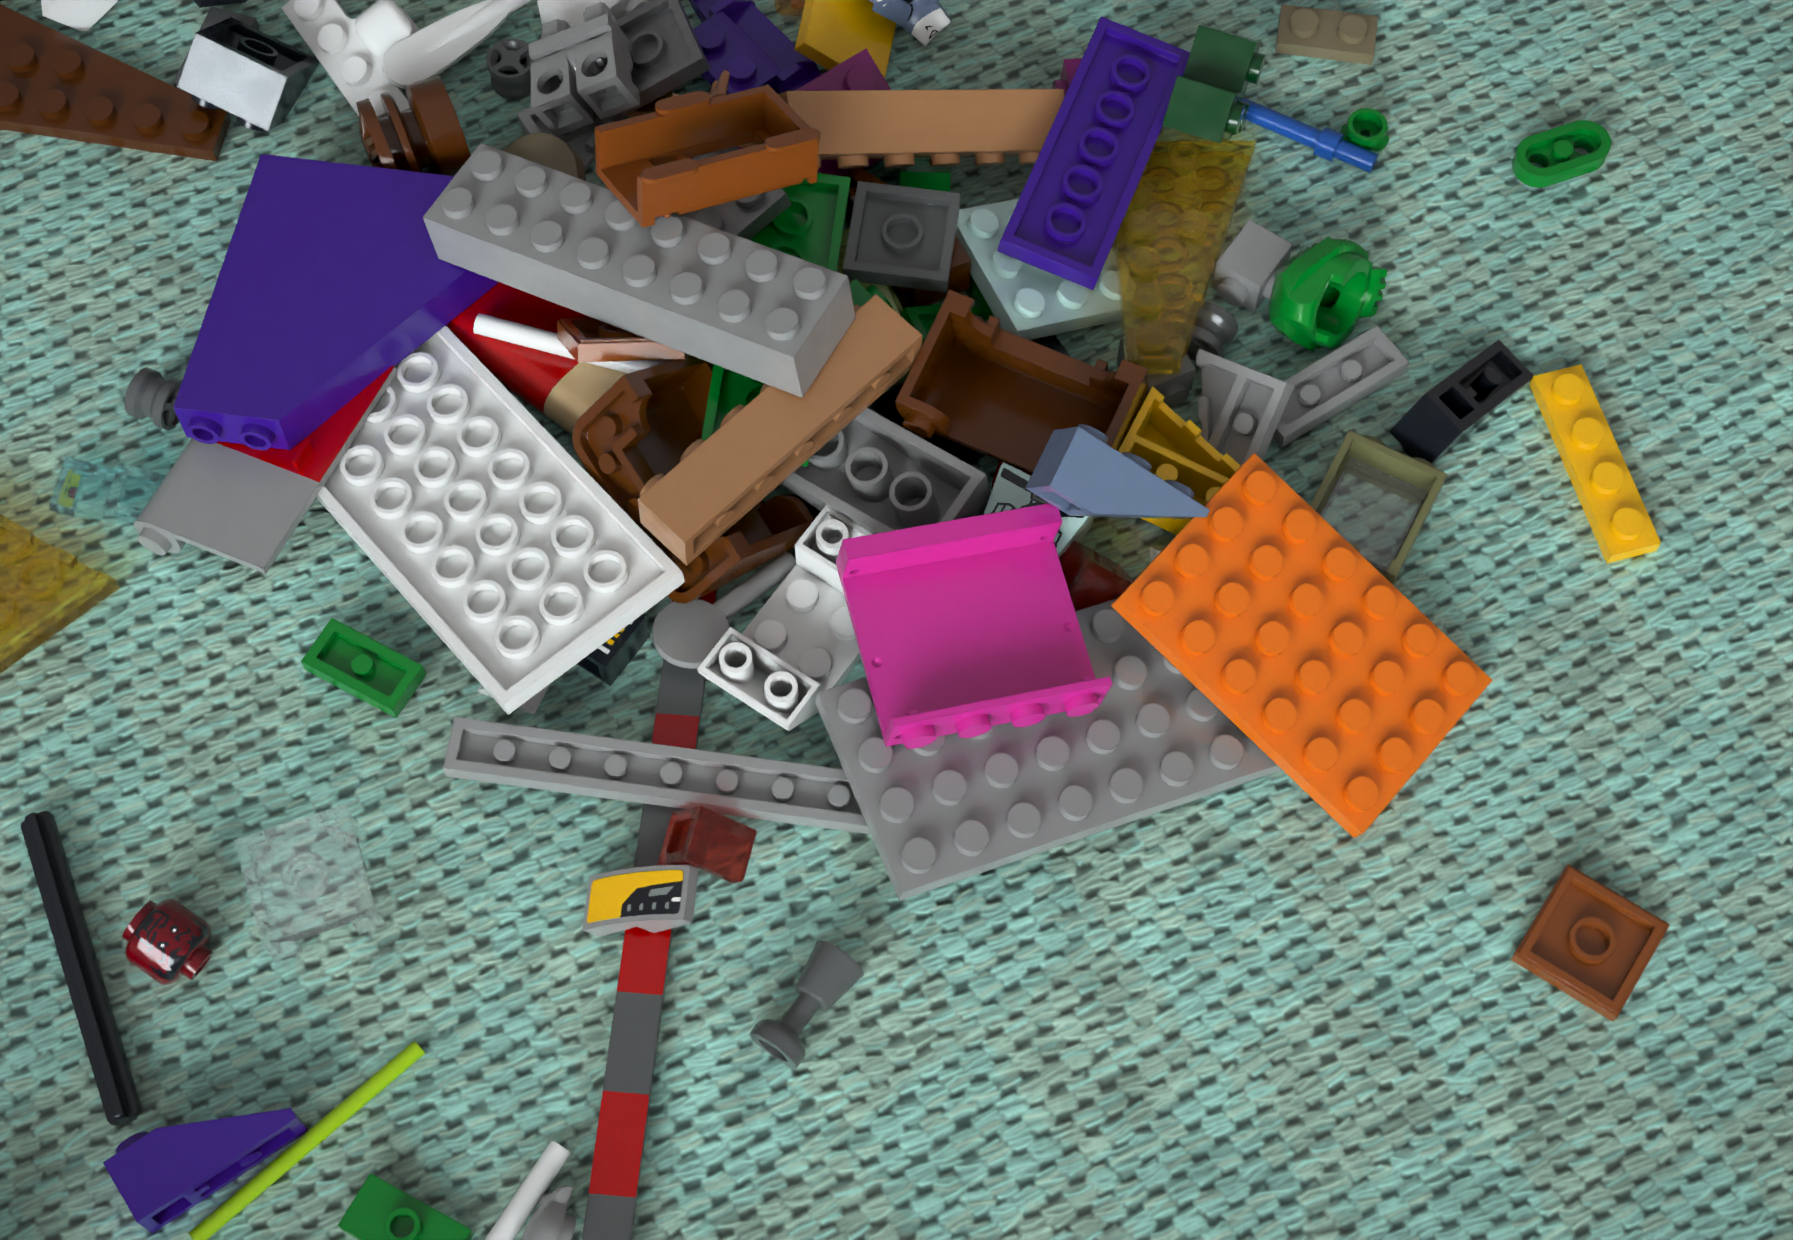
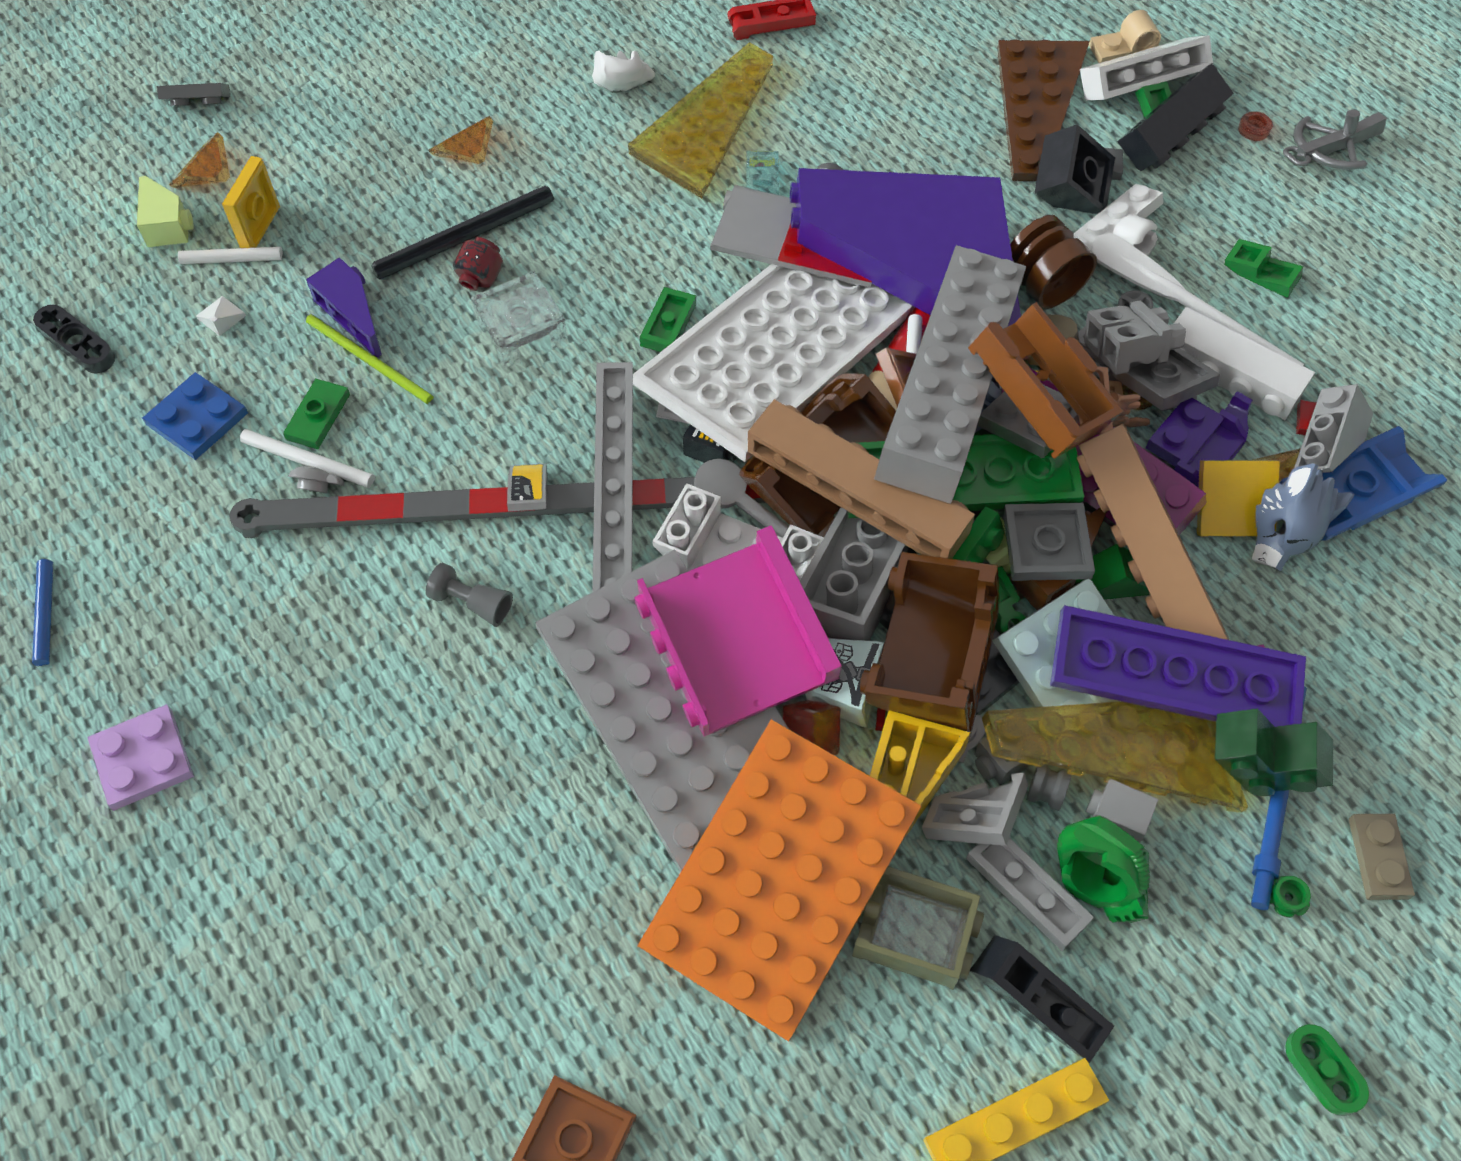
camera: 80 degrees right, 5 degrees down
(709, 843) = (567, 517): clear red panel -> none
(1093, 479) = (855, 688): sand blue slope -> none

